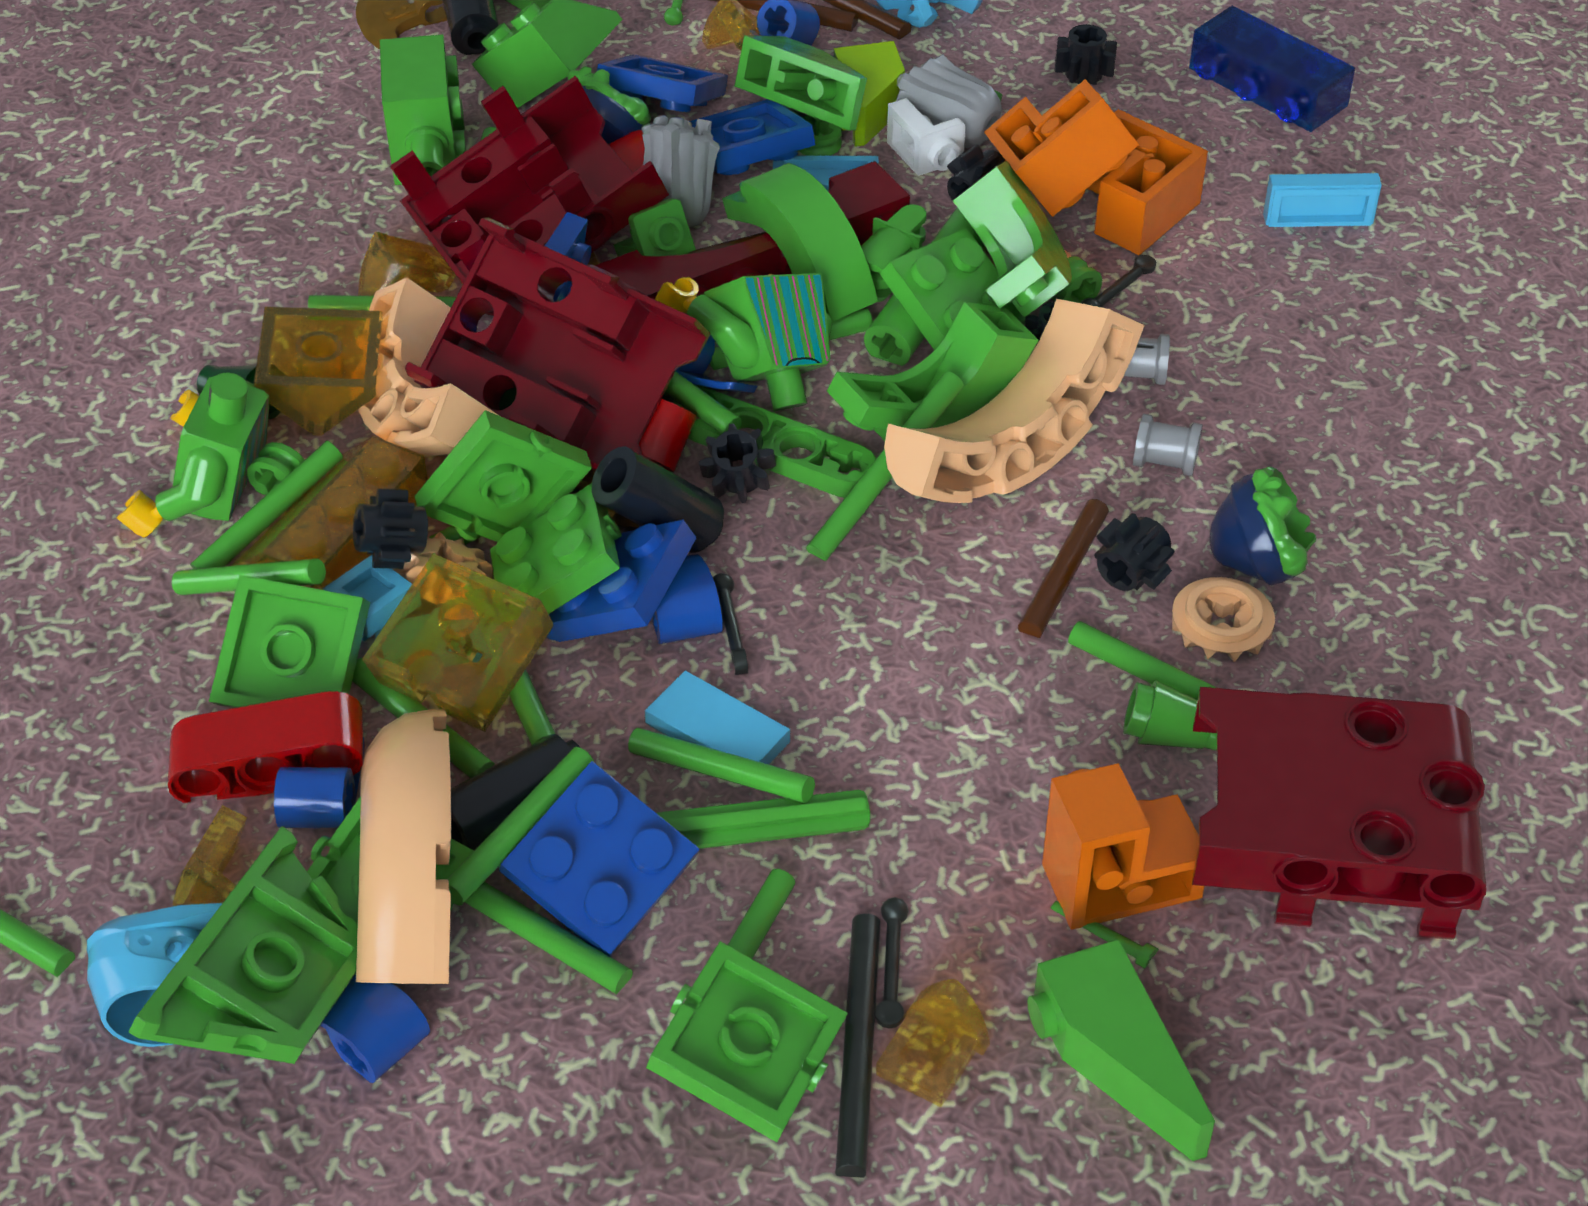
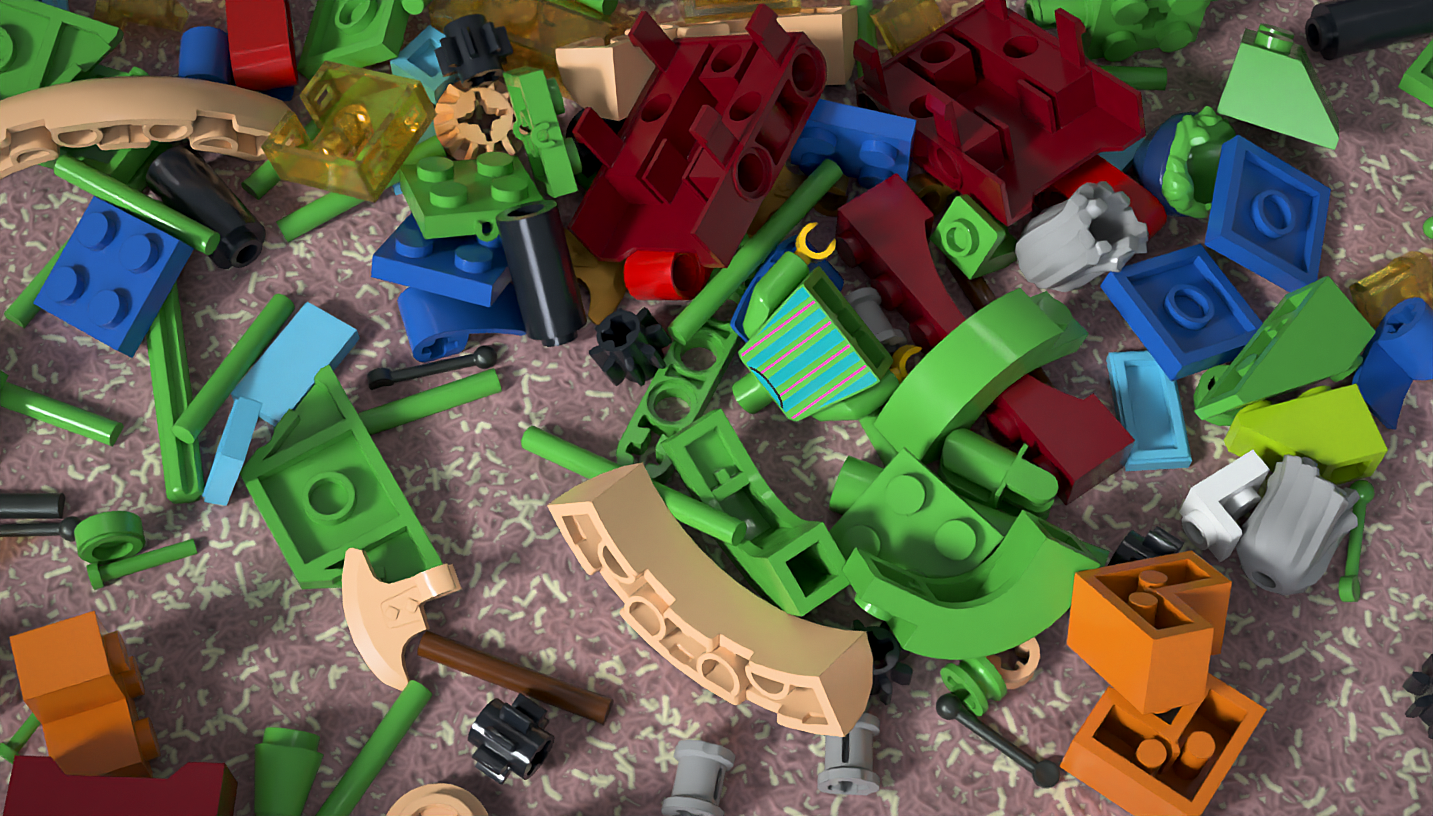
camera: 85 degrees right, 15 degrees up
(777, 642) = (430, 402): none -> bright green bar
(843, 729) = (232, 450): none -> medium azure tile
(875, 682) = (332, 492): none -> bright green wing
(917, 860) = (109, 537): none -> bright green tile
(947, 879) = (101, 574): none -> bright green piece
(1005, 638) = (389, 615): none -> light nougat piece

